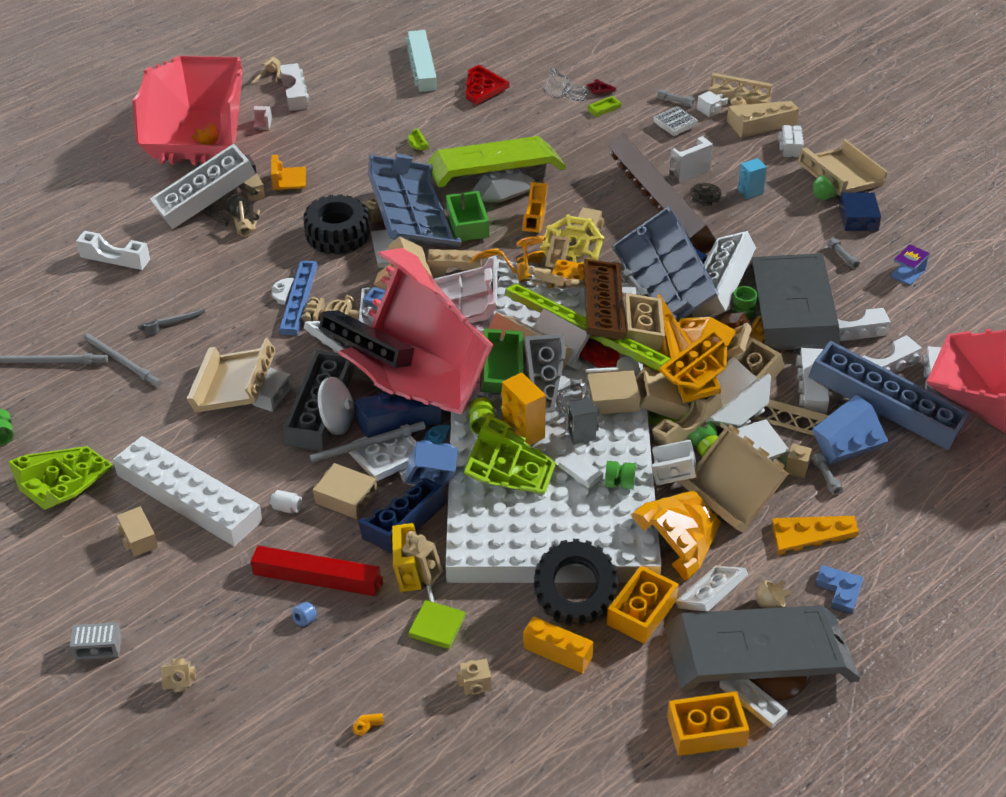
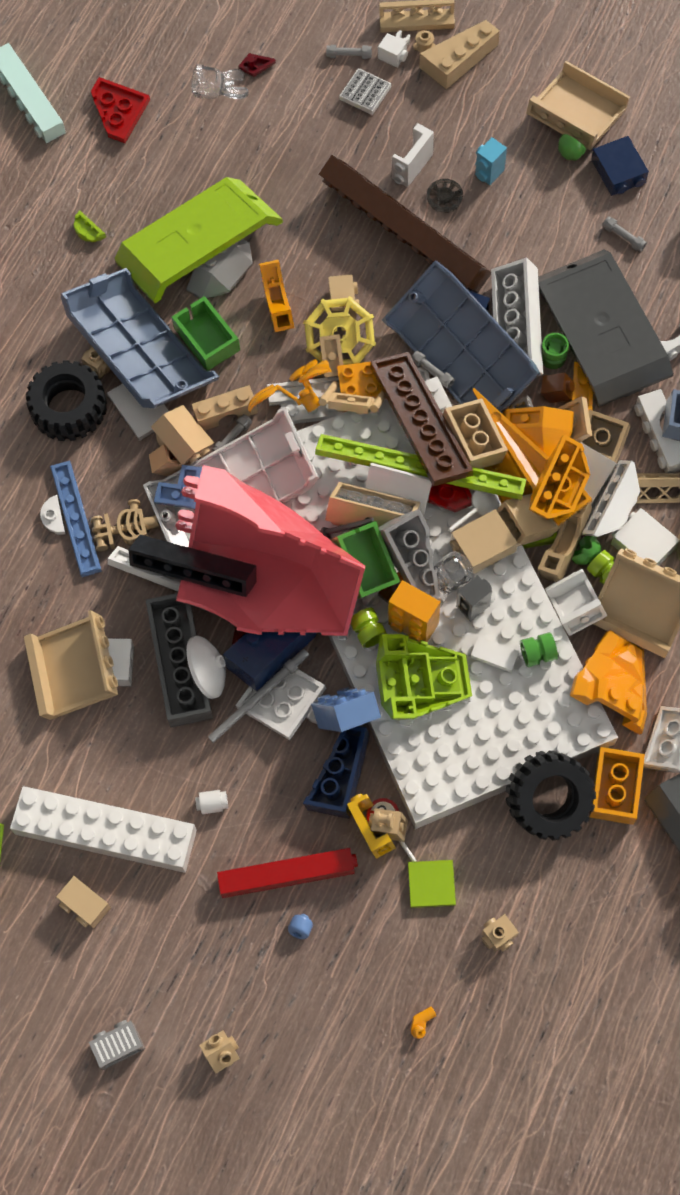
camera: 20 degrees left, 25 degrees up
(345, 490) = (263, 763): tan brick -> none
(438, 434) = (319, 656): dark azure plate -> none
(558, 644) = (558, 863): light orange brick -> none
(604, 106) = (273, 93): lime tile -> none
(791, 140) = (506, 79): white brick -> none

